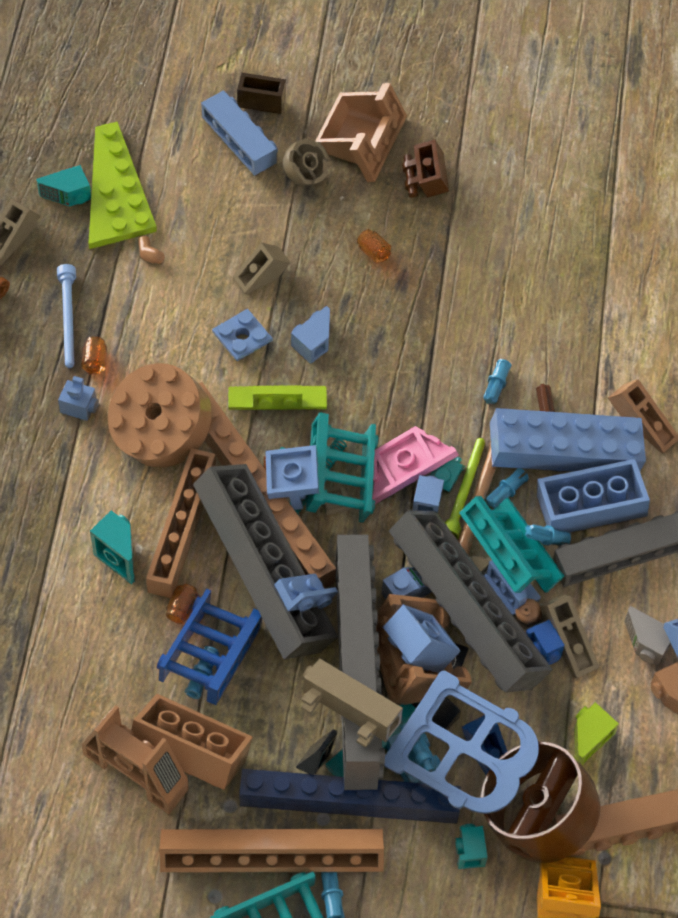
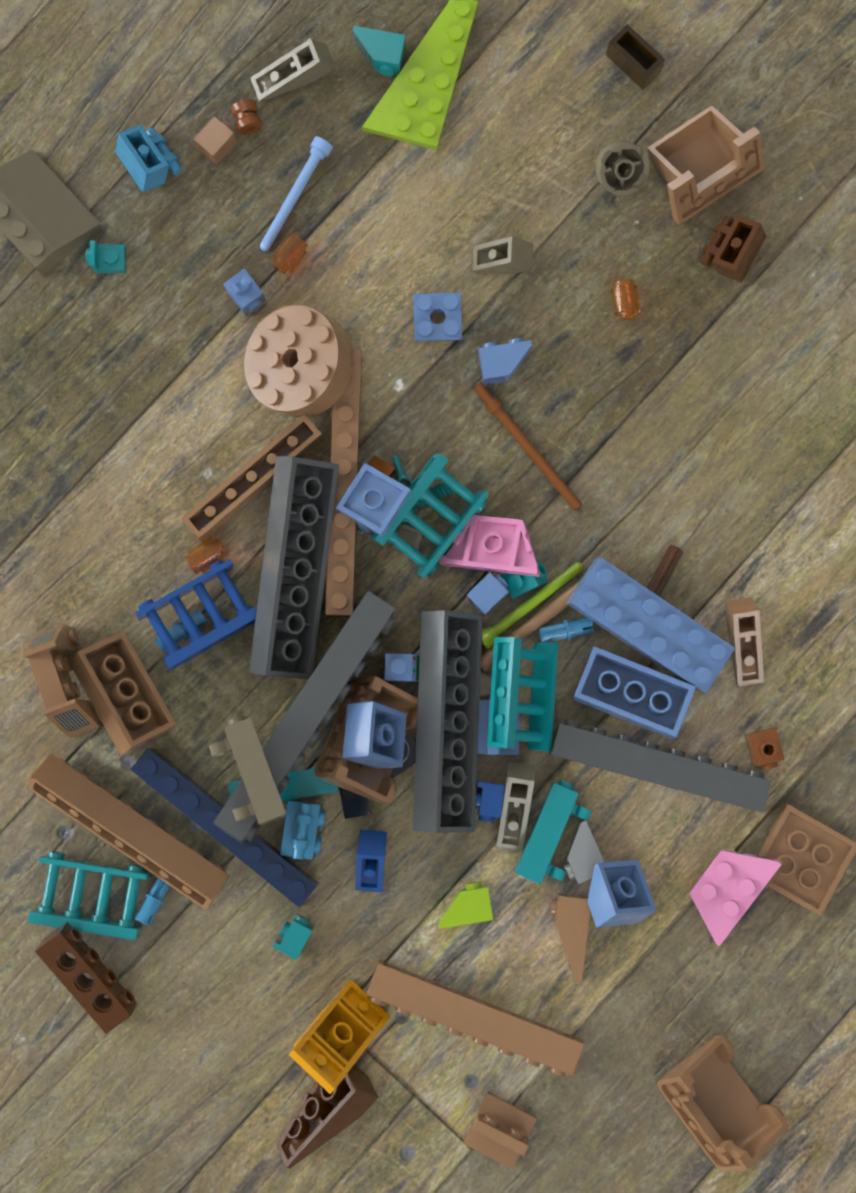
camera: 40 degrees right, 25 degrees up
(113, 544) = (181, 466): teal slope -> none
(149, 253) = (411, 172): medium nougat arm -> none
(239, 132) = (583, 89): medium blue brick -> none
(277, 397) = (429, 405): lime bracket -> none
(304, 592) = (301, 625): medium blue bracket -> none
(317, 753) = (216, 775): black slope -> none
(332, 370) = (494, 407): none -> dark orange bar
(497, 381) = (637, 516): dark azure axle -> none
(507, 770) = (351, 912): medium blue window -> none
(529, 613) = (497, 763): medium nougat piece -> none
(529, 832) = (348, 961): reddish brown cylinder -> none
(547, 535) = (565, 703): dark azure axle -> none
(608, 640) = (547, 832): none -> teal brick

